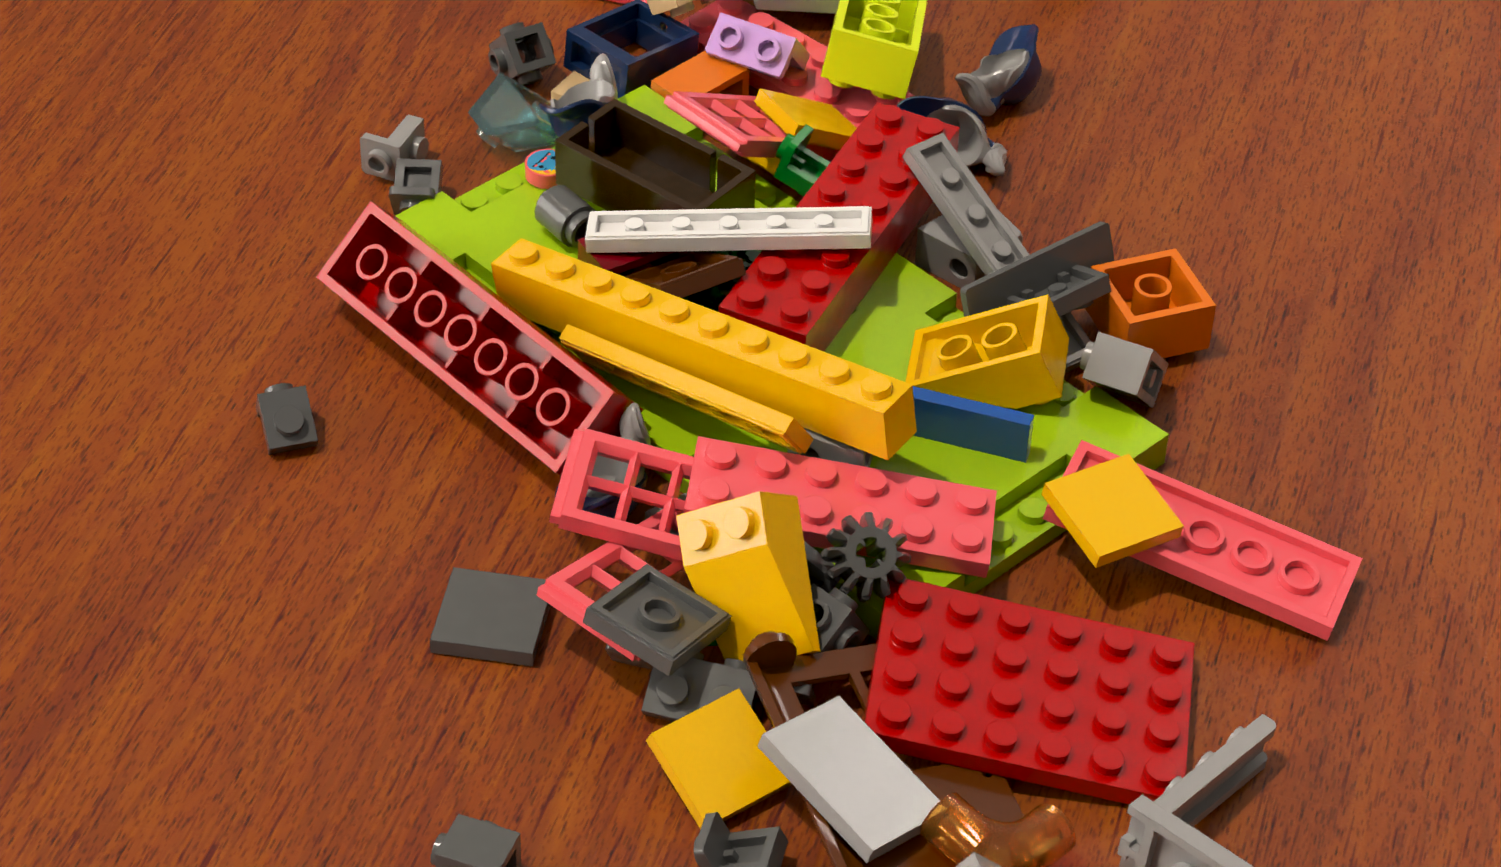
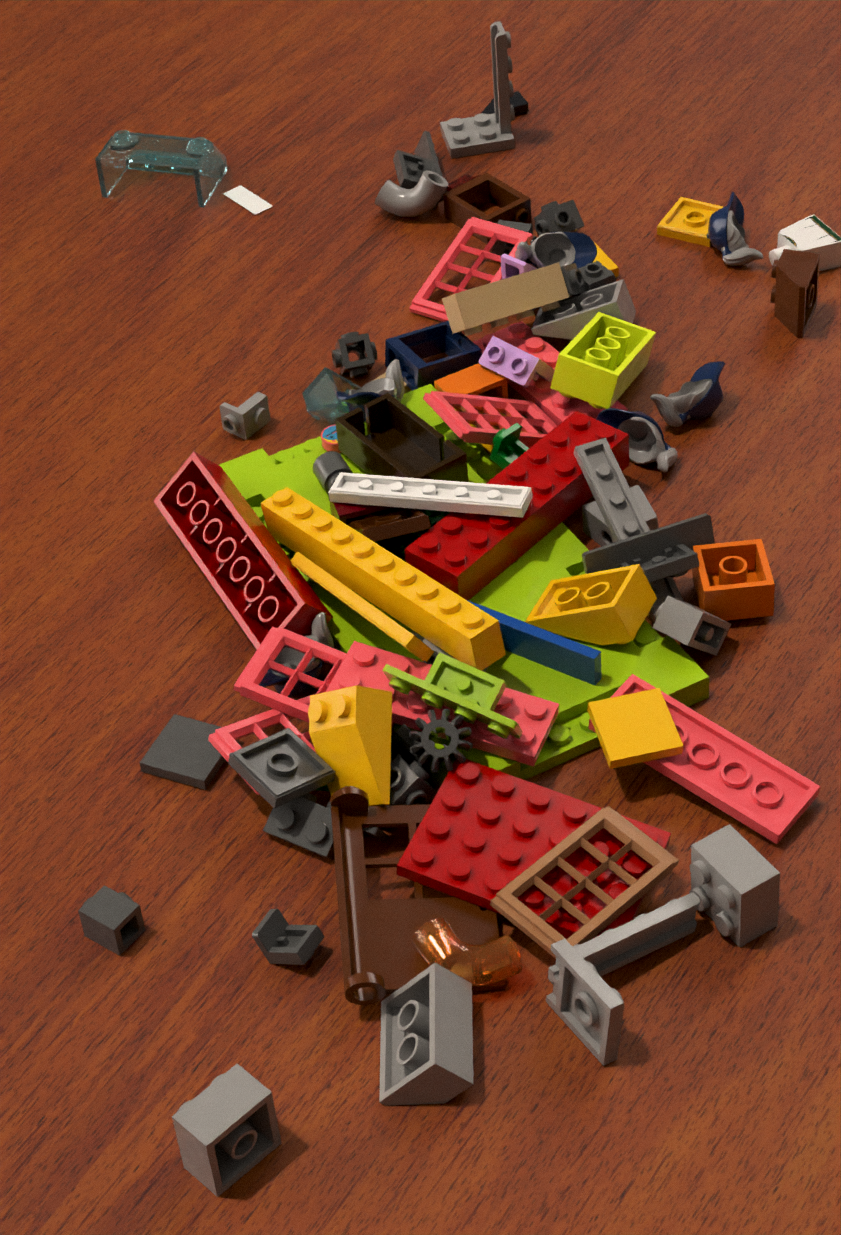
camera: 20 degrees right, 0 degrees up
(286, 418) = (102, 597): dark grey bracket -> none
(415, 182) = (249, 439): dark grey bracket -> none
(716, 758) = (297, 871): yellow tile -> none
(793, 113) = (534, 417): yellow tile -> none
(850, 777) = (373, 896): tile -> none
(877, 483) = (461, 688): none -> lime bracket
(1077, 784) = (632, 838): none -> medium nougat piece
(1315, 696) = (735, 885): none -> light grey brick

